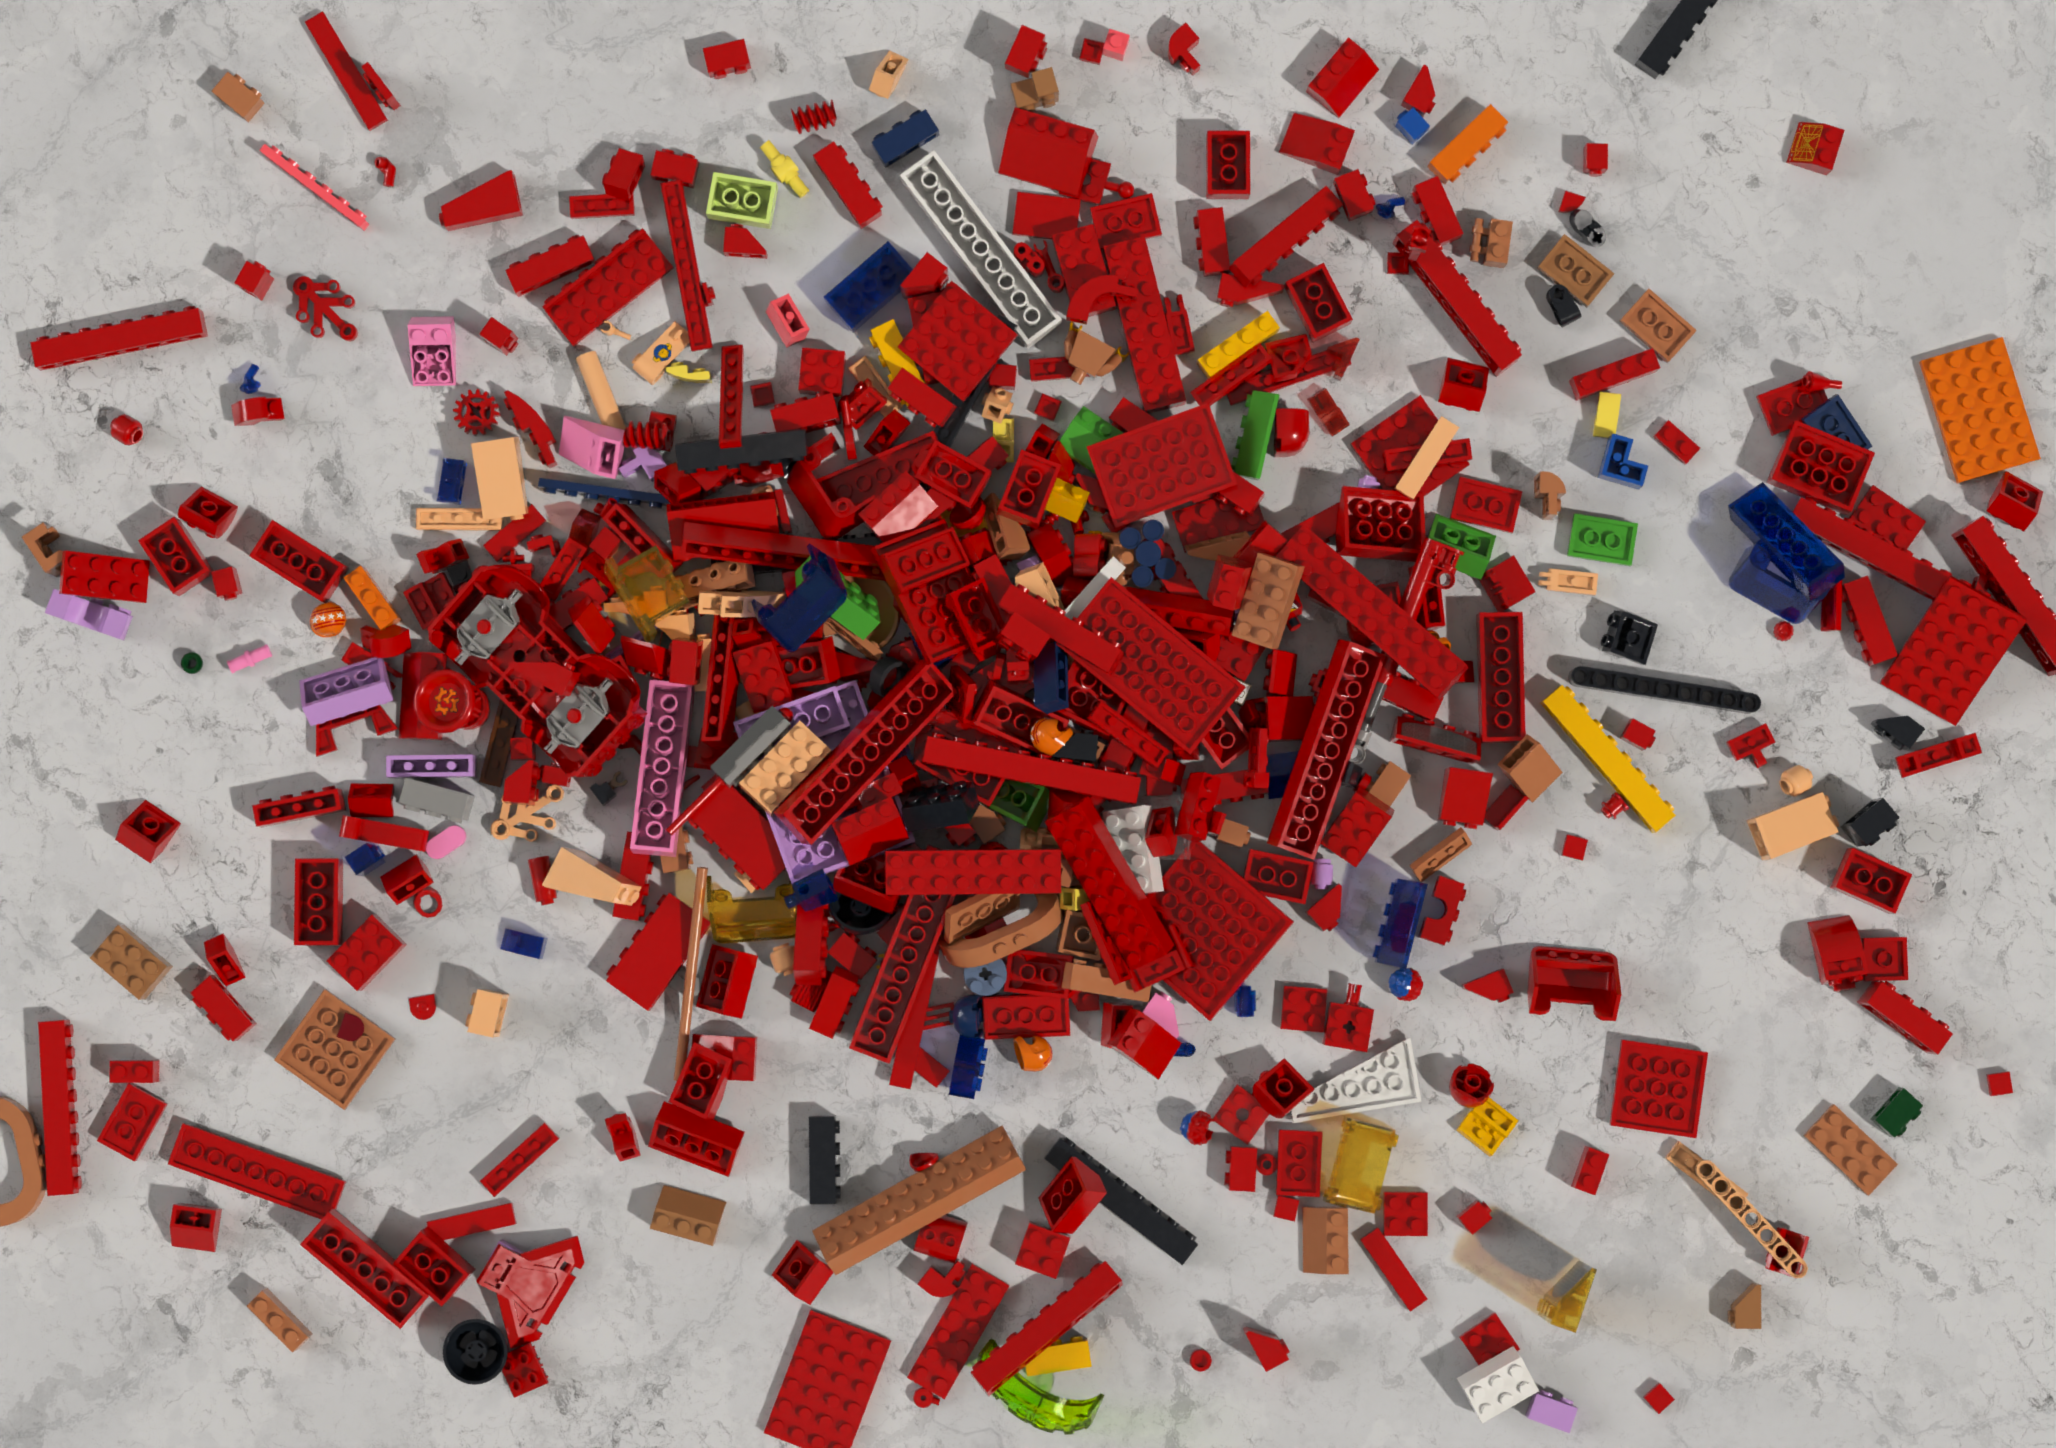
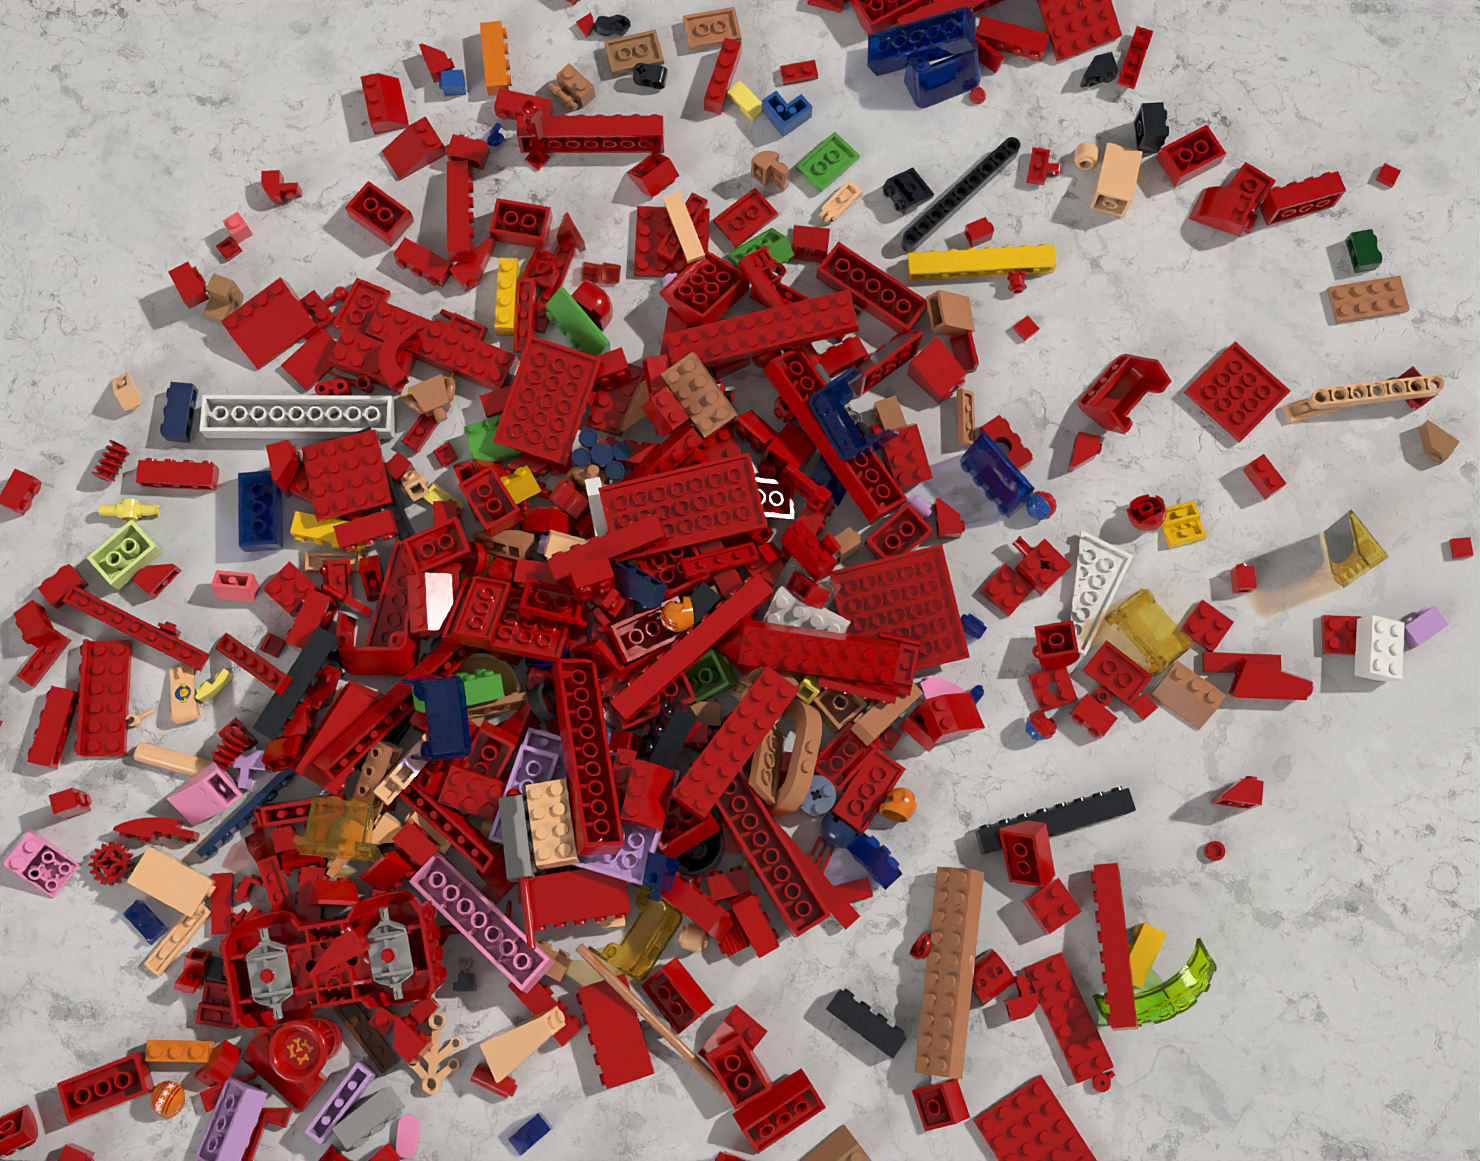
camera: 55 degrees left, 10 degrees down
(1335, 747) = (836, 422): none -> clear blue windscreen
(1390, 1303) = (1267, 682): none -> red slope

